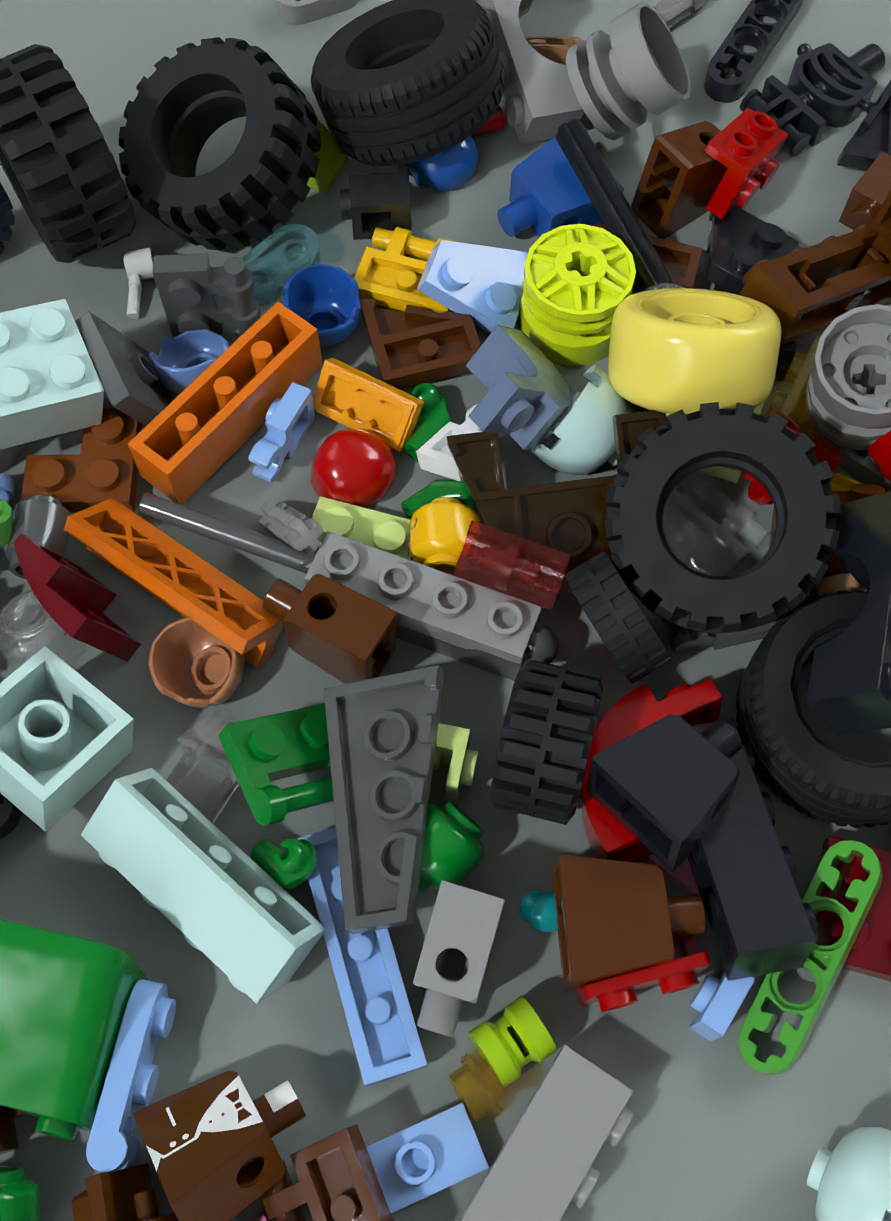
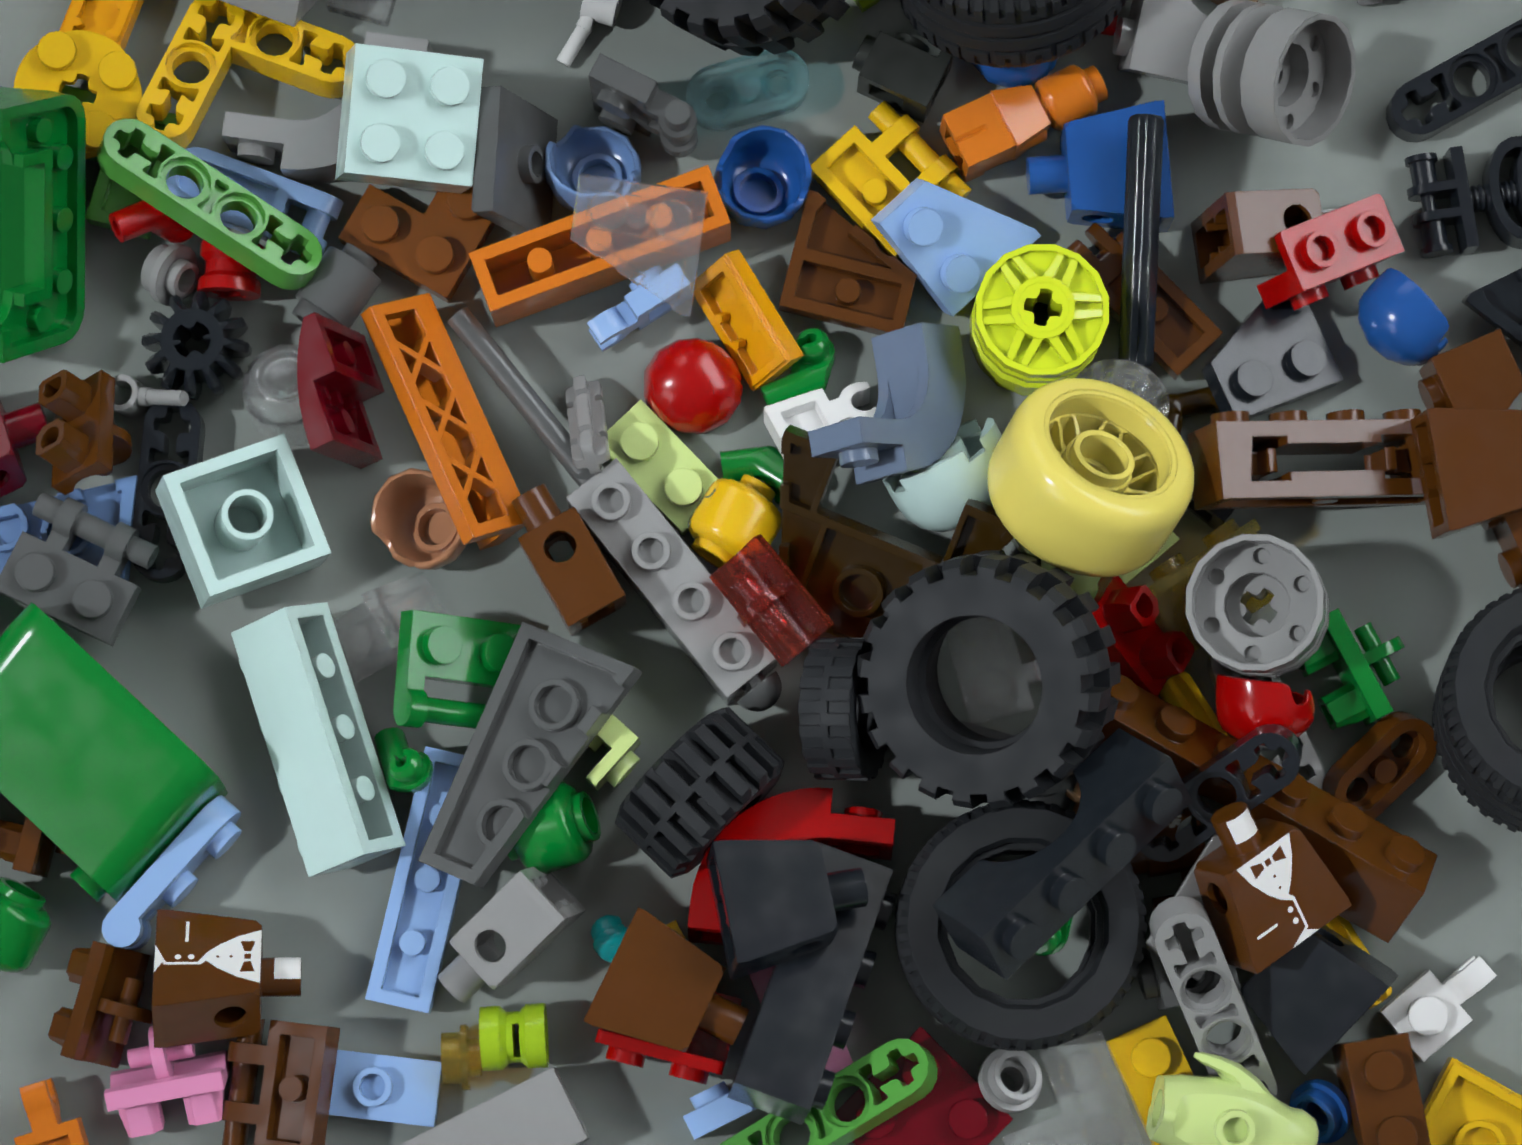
camera: 30 degrees right, 15 degrees up
(256, 357) = (644, 233): none -> clear wing
(472, 195) = (1017, 118): none -> orange piece
(815, 178) = (1401, 320): none -> blue hair

